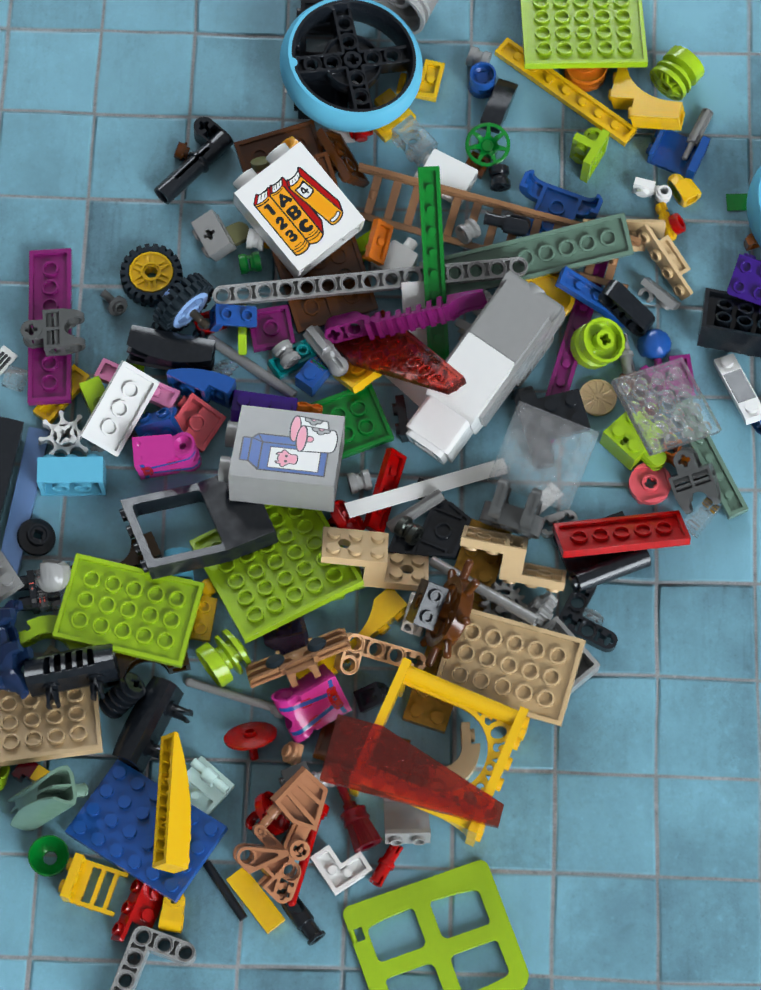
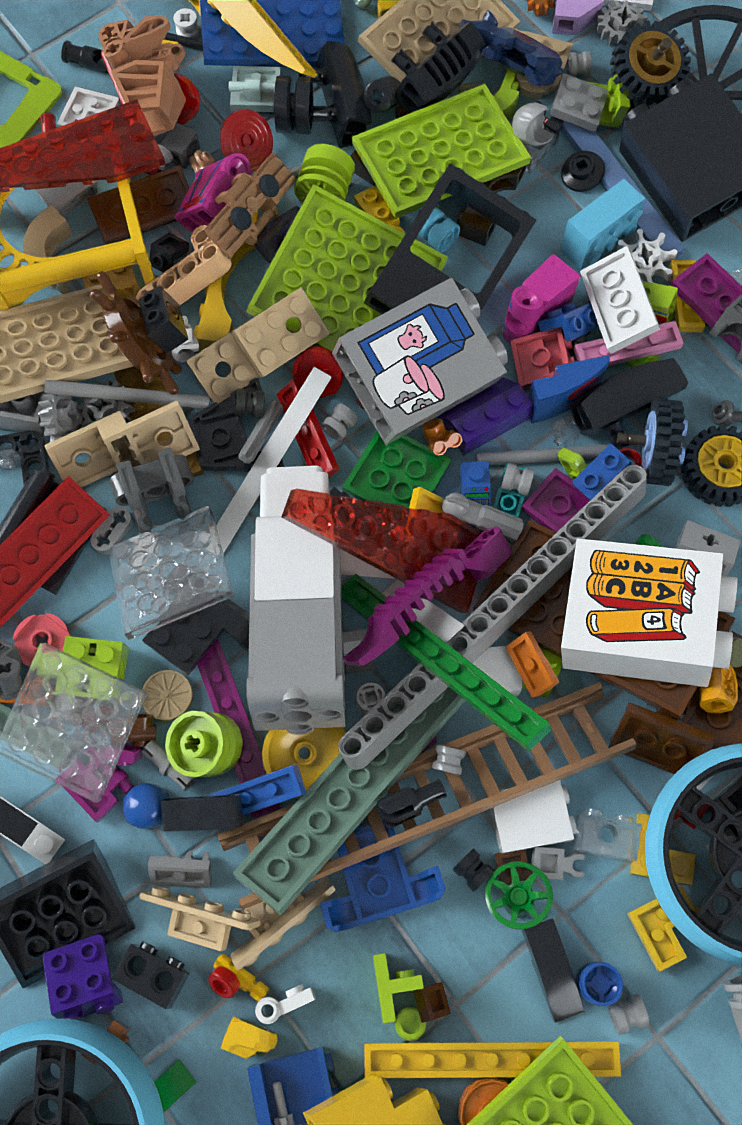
camera: 145 degrees right, 0 degrees up
(196, 734) = (293, 106): none -> black wheel
(207, 896) = (186, 23): none -> white wheel
(454, 149) = (553, 863): none -> light grey plate
(570, 133) = (431, 1002): none -> reddish brown plate
(718, 253) = (148, 982): none -> black brick

